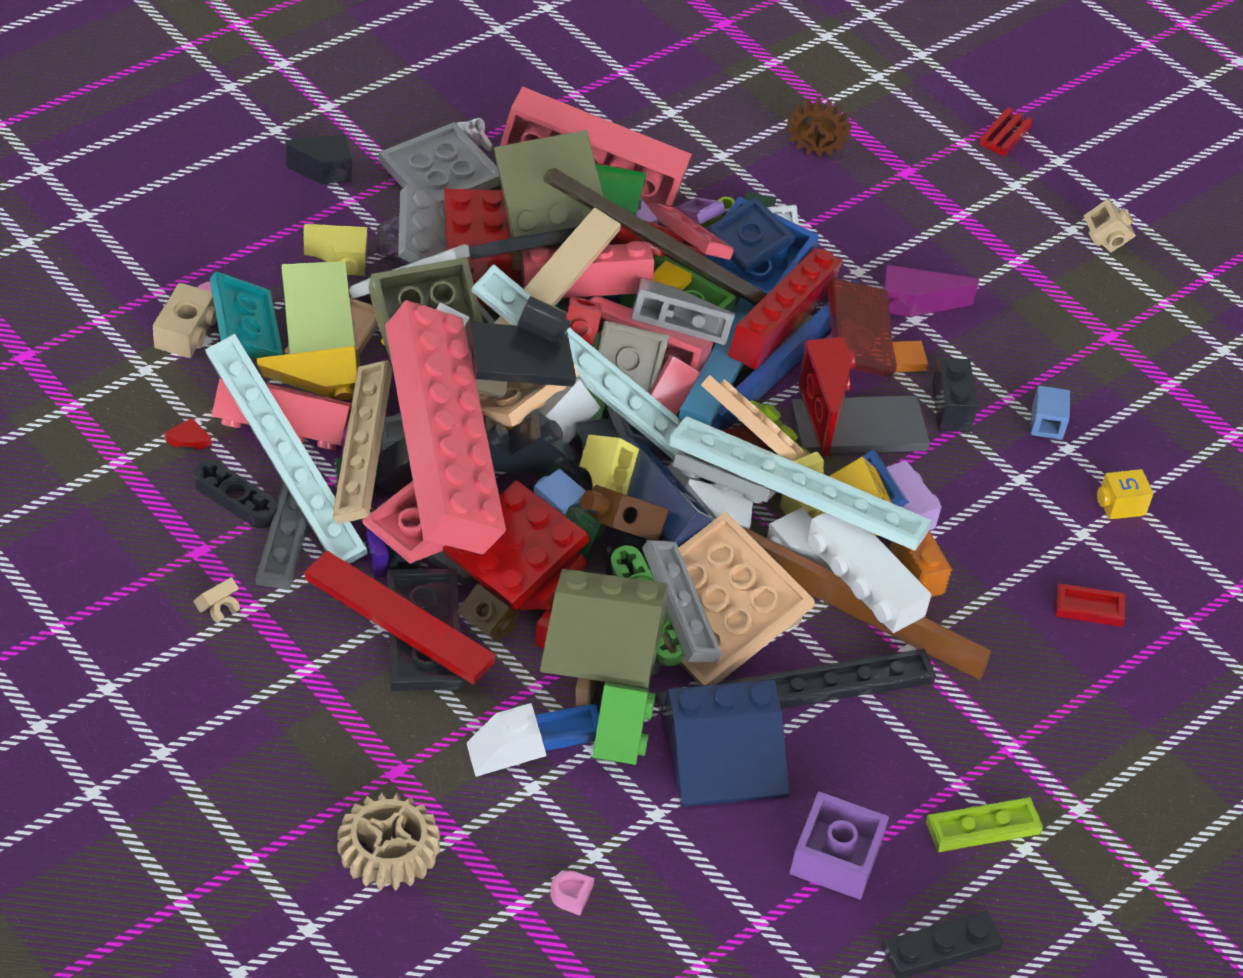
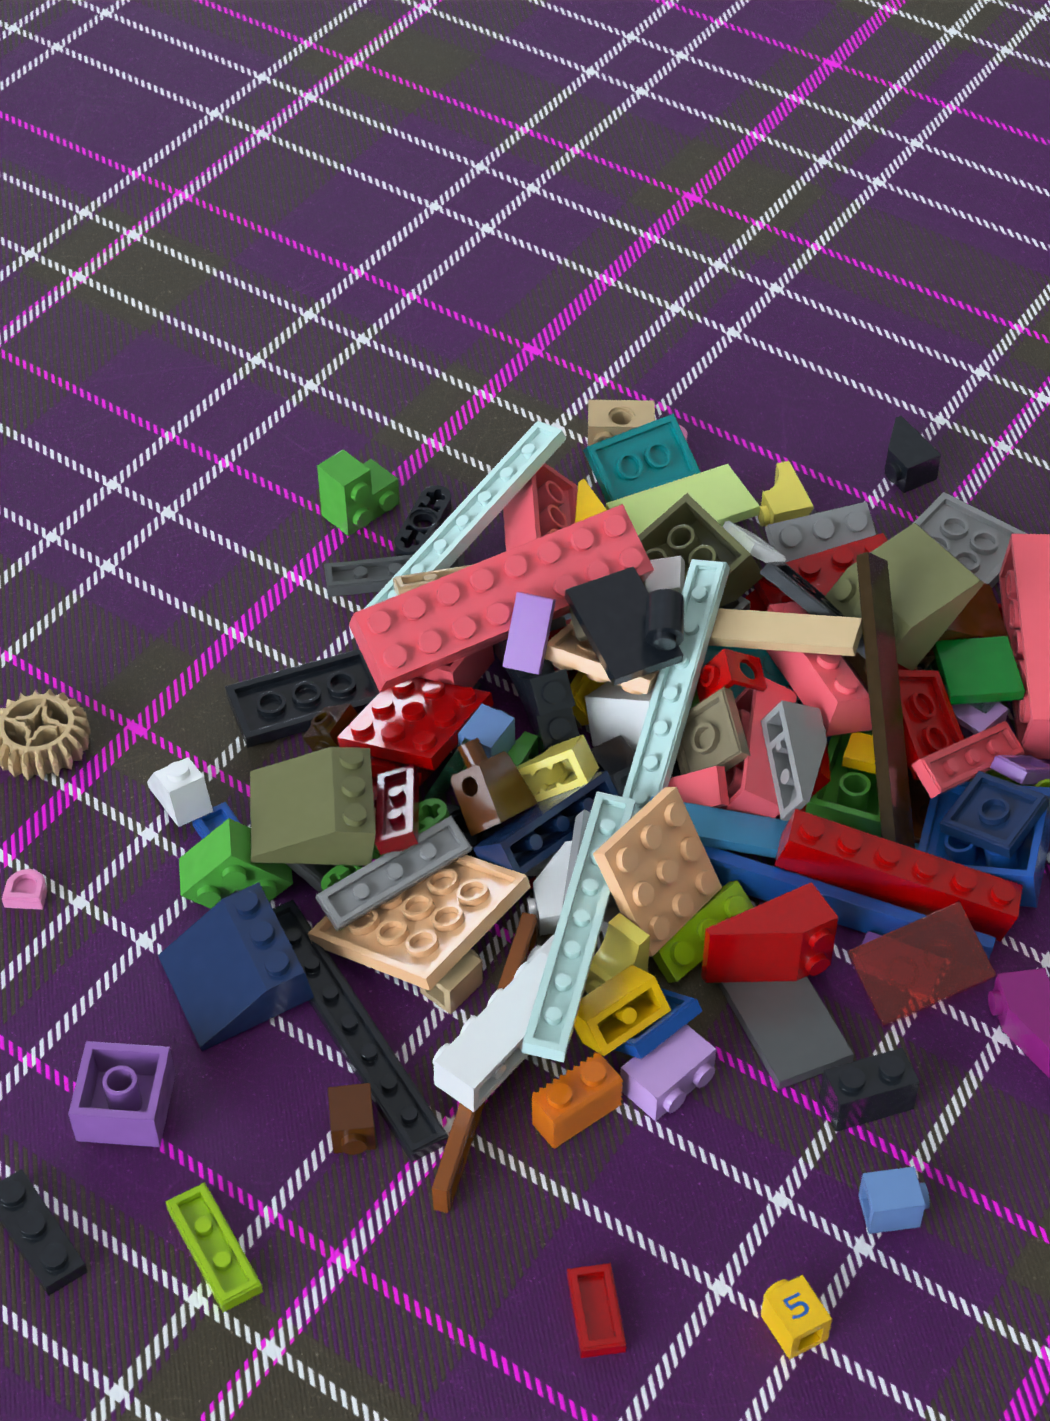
camera: 80 degrees right, 0 degrees up
(185, 524) = (355, 492): none -> bright green brick
(188, 435) = (478, 470): red tile -> none
(218, 596) = (283, 542): tan tile -> none
(400, 617) = (299, 669): red tile -> none
(501, 415) = (529, 633): none -> tile
(641, 567) = (397, 809): none -> dark red plate
(898, 702) = (351, 1118): none -> reddish brown brick
(909, 356) = (923, 1036): orange tile -> none

